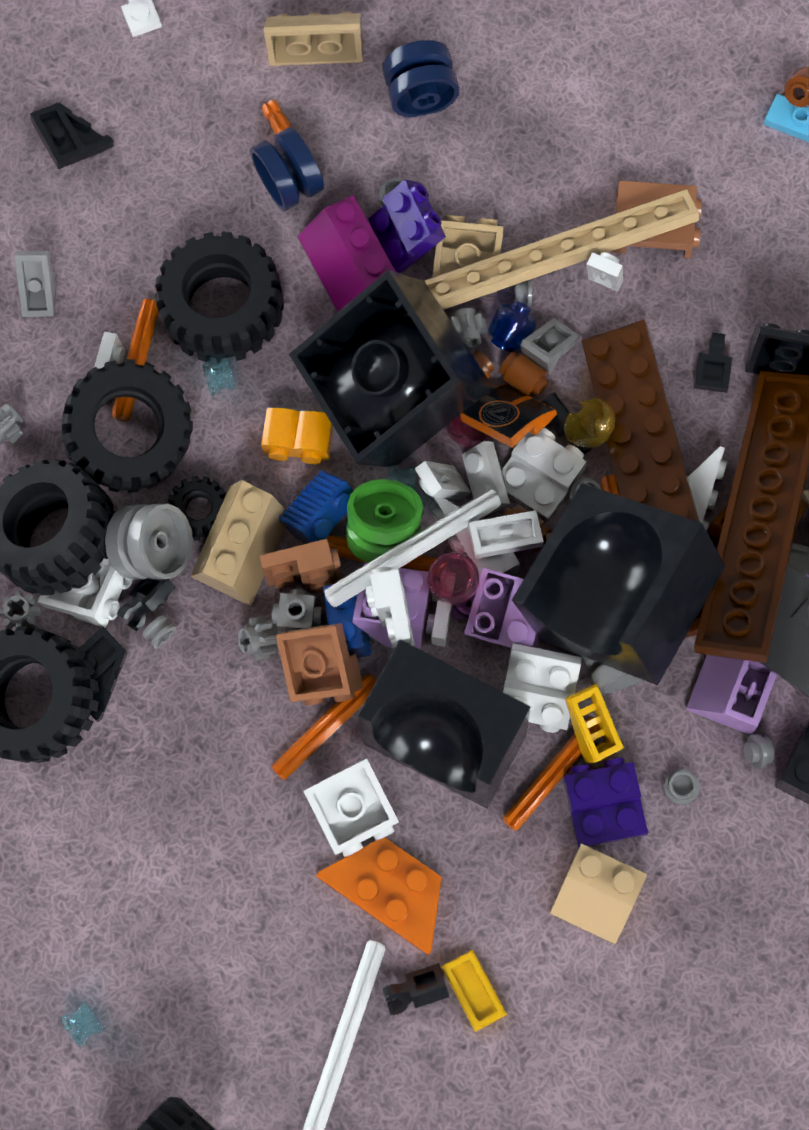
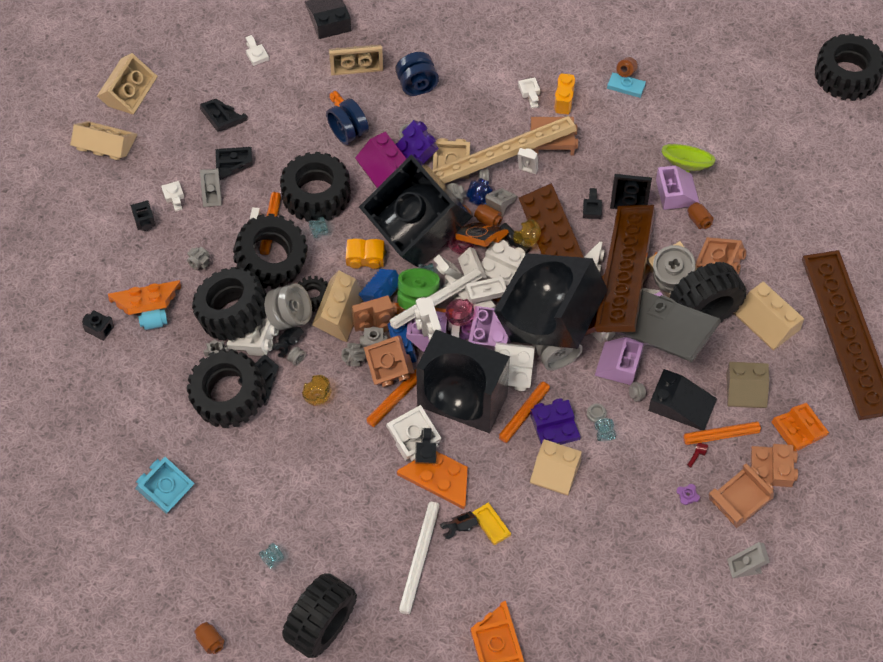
camera: 10 degrees left, 15 degrees down
(79, 230) = (233, 160): none -> black wing
(189, 693) = (318, 385): none -> clear yellow hair
(368, 847) = (425, 451): none -> black plate
(607, 729) = (541, 391): yellow slope -> none
(623, 119) = (530, 89): none -> white plate
(685, 134) = (564, 93): none -> light orange brick
(693, 824) = (605, 430): none -> clear light blue wheel

